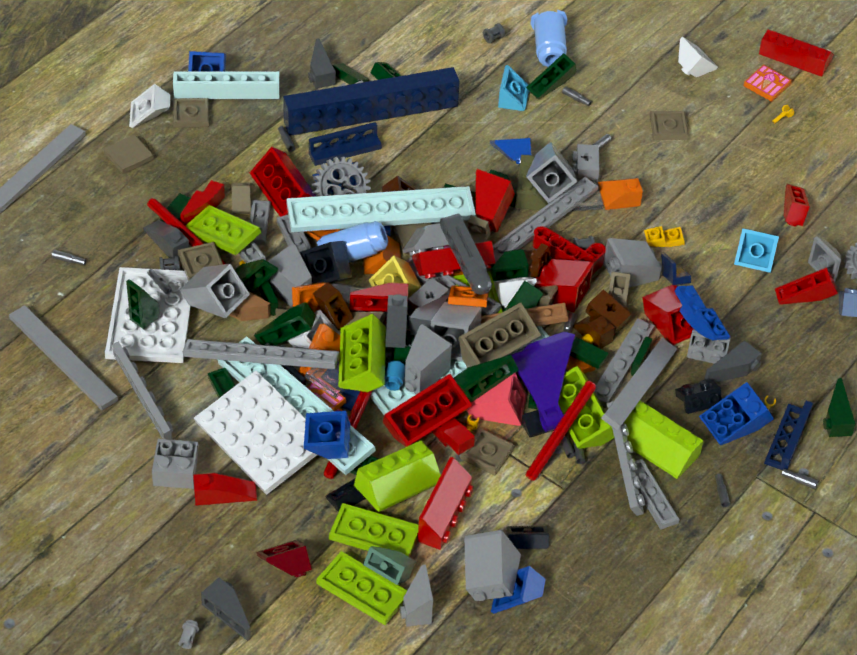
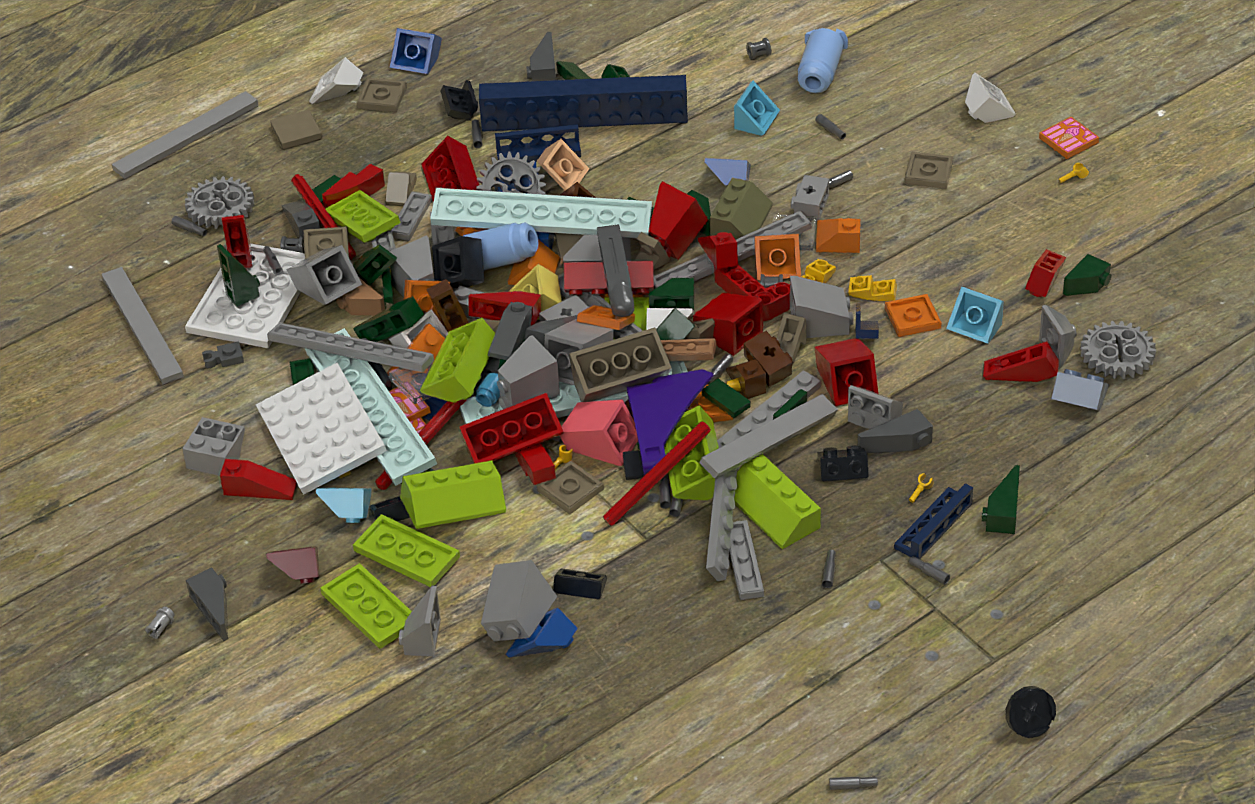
camera: 20 degrees right, 5 degrees down
(89, 232) = (218, 200): none -> light grey gear
(129, 268) = (238, 239): none -> red slope
(139, 386) = (207, 361): light grey plate -> none
(152, 373) = (226, 355): none -> dark grey plate
(226, 85) = (427, 68): light aqua brick -> none
(263, 110) = (460, 102): none -> black bracket
(309, 495) = (347, 502): none -> medium azure slope
(327, 434) = (384, 436): blue slope -> none
(373, 159) = (563, 164): none -> light nougat slope
(389, 564) = (404, 583): sand green slope -> none
(444, 505) = (492, 531): slope -> none
(484, 376) = (587, 402): dark green slope -> none
(537, 219) = (720, 249): none -> red slope
(539, 258) = (708, 288): reddish brown wing -> none
(550, 173) = (757, 200): light grey slope -> none
(553, 77) = (808, 102): dark green slope -> none
(580, 220) = (777, 255): none -> orange slope
(615, 229) = (819, 271): none -> yellow slope
(699, 317) = (863, 371): blue slope -> none
(704, 256) = (913, 315): none -> orange tile
(736, 415) = (879, 489): blue slope -> none
(795, 53) = (1116, 108): red slope -> none
(829, 203) = (1087, 276): none -> dark green slope

